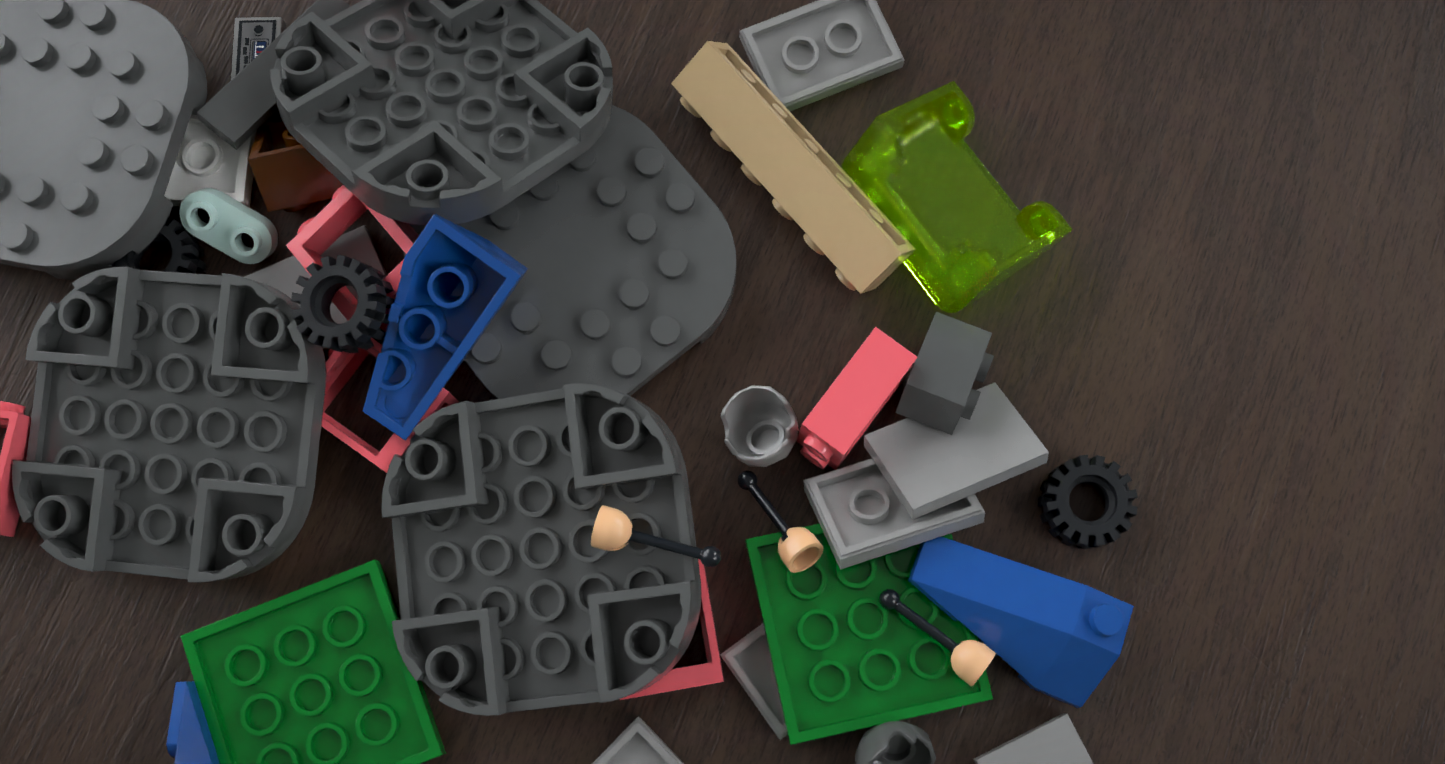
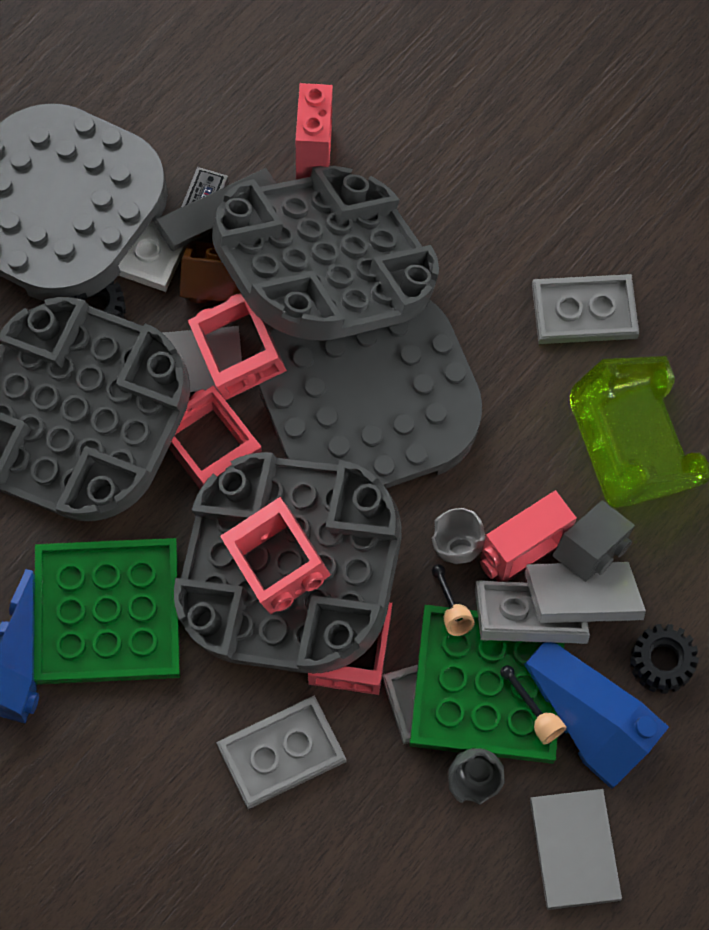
camera: 15 degrees right, 10 degrees down
(226, 225) = (150, 296): light aqua plate -> none
(317, 298) = (210, 349): black tyre -> none
(442, 307) = (276, 391): blue wedge -> none
(478, 524) = (259, 529): none -> coral window
(614, 531) = (342, 560): hinge -> none
(792, 167) = (538, 378): tan brick -> none

